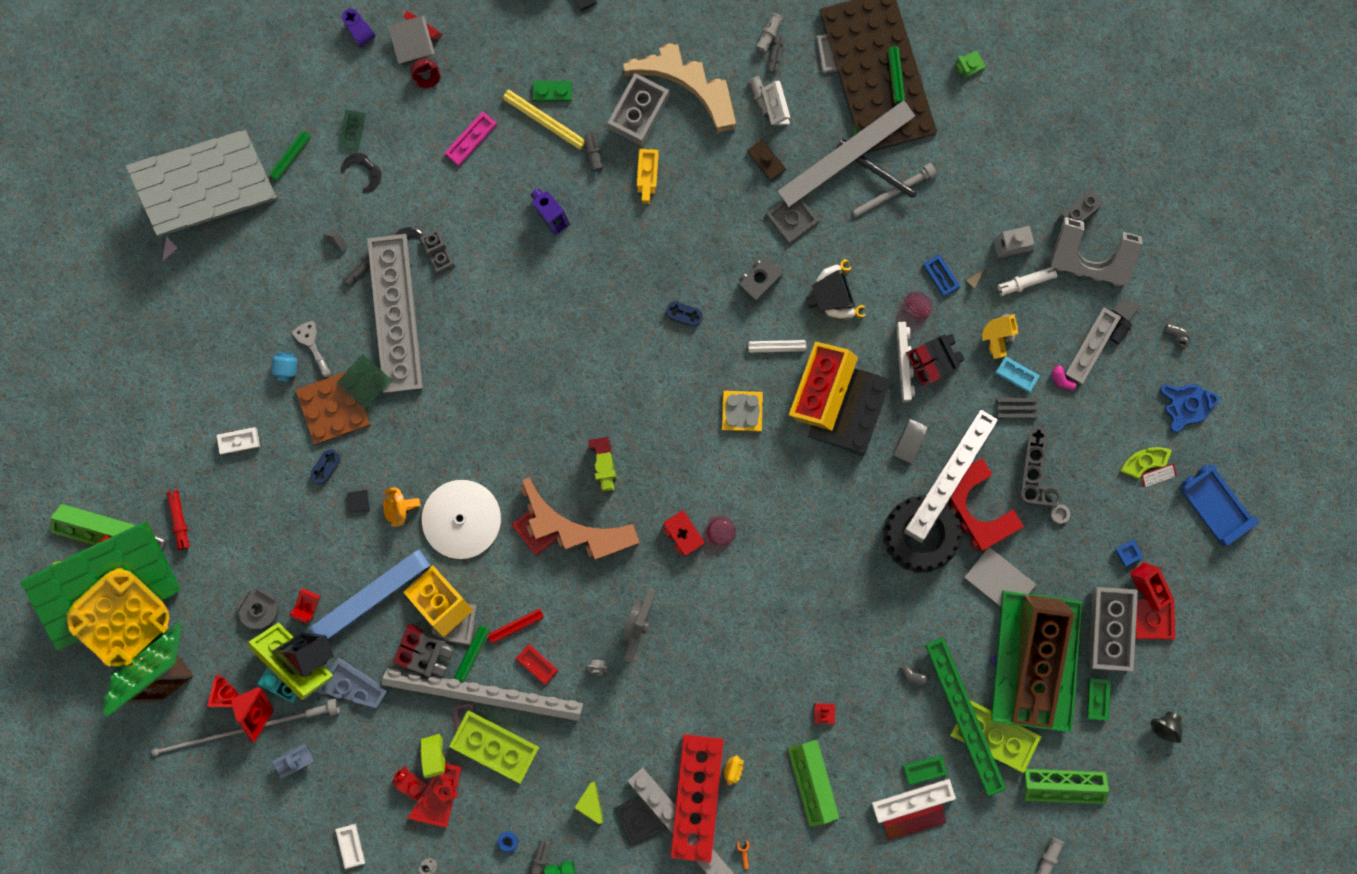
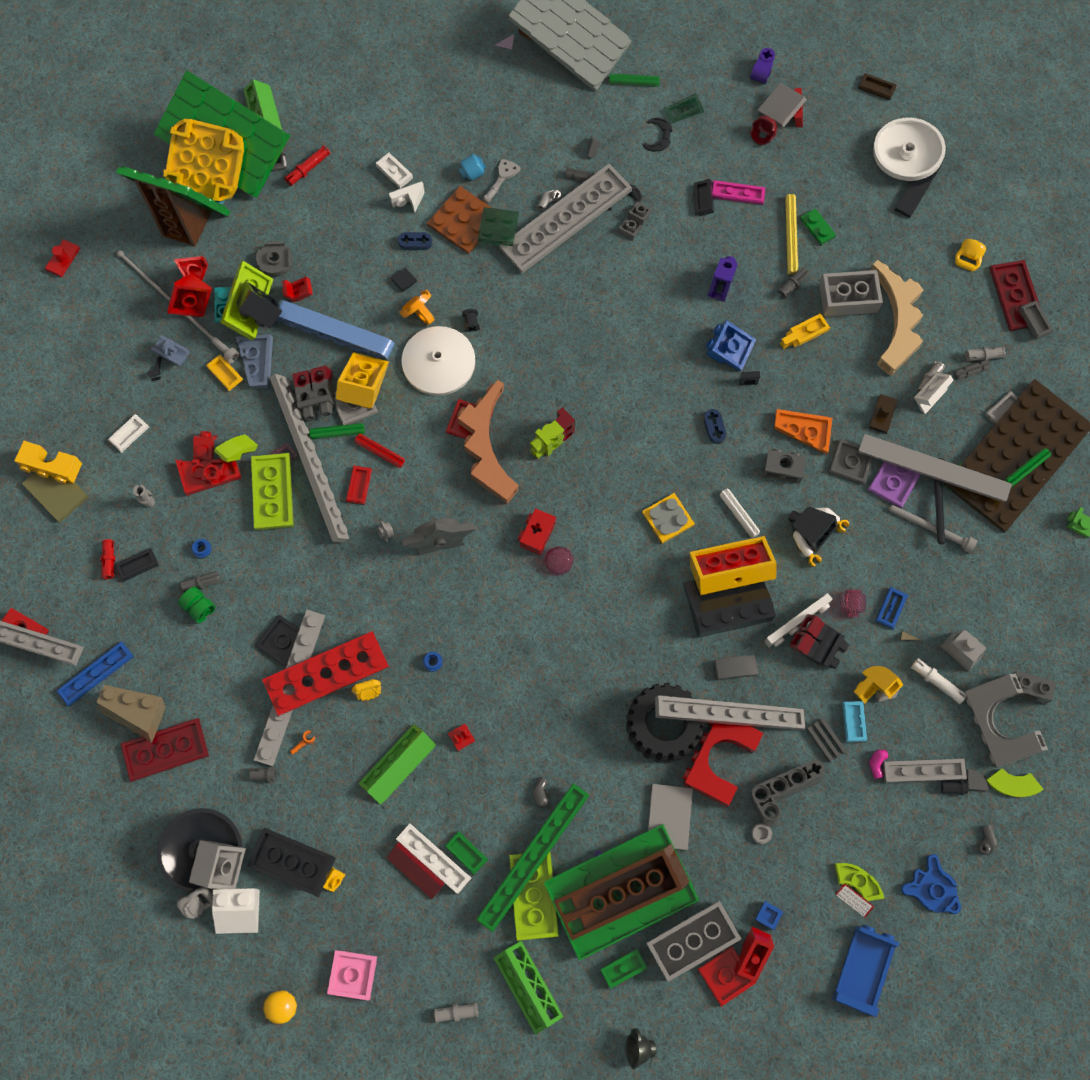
camera: 50 degrees right, 10 degrees down
(123, 810) = (62, 258): none -> red tile
(275, 439) = (408, 194): none -> white slope
(305, 788) = (153, 373): none -> black hand
(346, 723) = (224, 372): none -> yellow tile
(361, 315) = (548, 197): none -> light grey arm
(441, 465) = (470, 318): none -> black bush
(456, 173) = (703, 197): none -> black tile
(590, 804) = (270, 591): lime slope -> none
(618, 249) = (730, 345): none -> blue plate
(660, 253) = (749, 378): none -> black tile
(737, 236) = (806, 428): none -> orange wing
(749, 698) = (432, 655): none -> blue plate
(834, 195) = (893, 483): none -> medium lavender tile
(1148, 282) = (1014, 785): none -> lime tile

